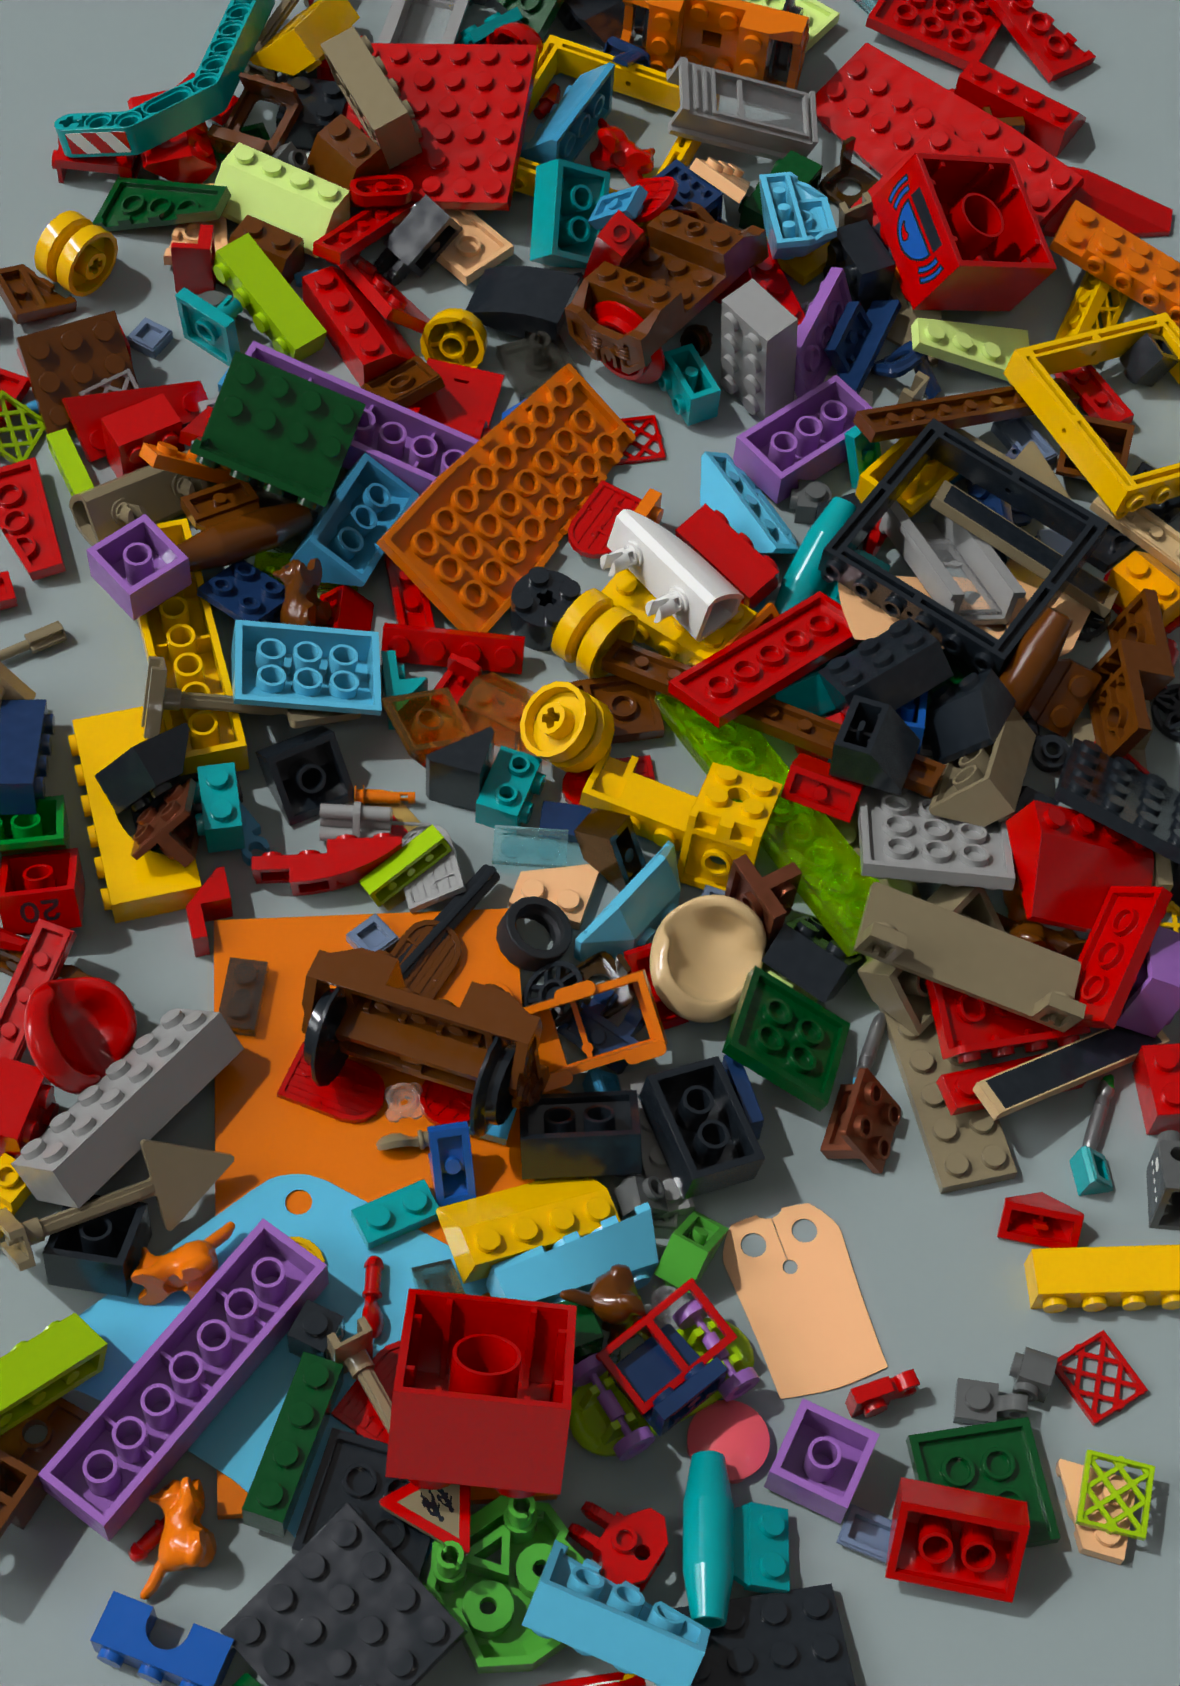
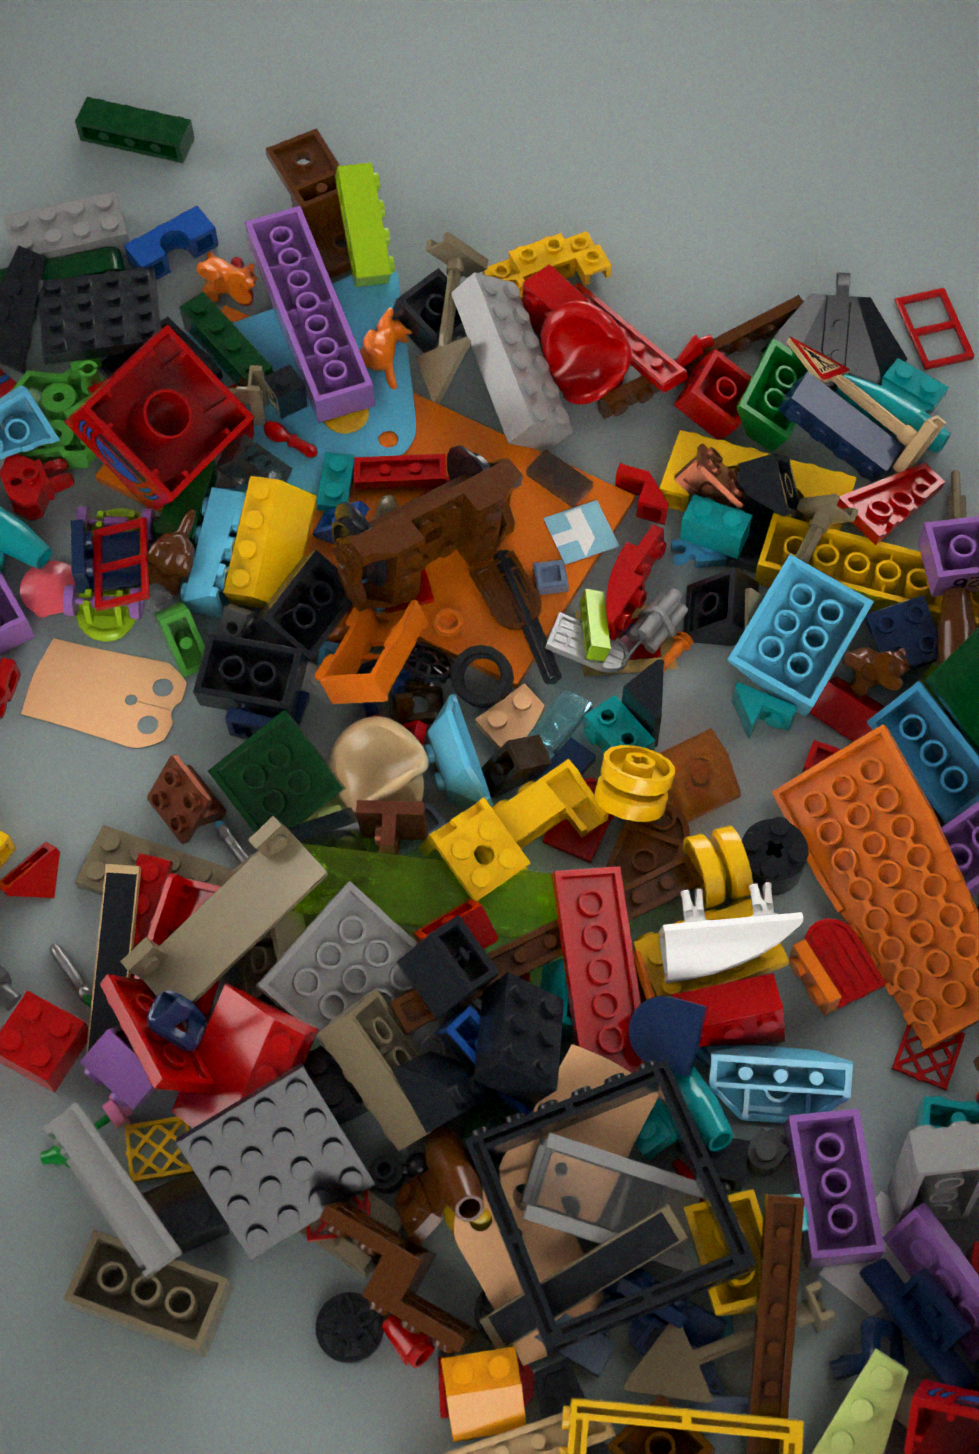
camera: 130 degrees right, 5 degrees up
(87, 680) = (891, 500): none -> red wing
(292, 943) = (581, 532): none -> medium azure sticker
(341, 1151) = (399, 471): none -> red plate
(426, 721) = (701, 695): clear orange slope -> none
(435, 645) = (777, 769): red plate -> none
(459, 675) = (741, 752): red bracket -> none
(788, 575) = (668, 1031): none -> dark blue tile
(1090, 1172) = (36, 937): teal slope -> none
(1096, 926) = (170, 1010): none -> dark blue piece

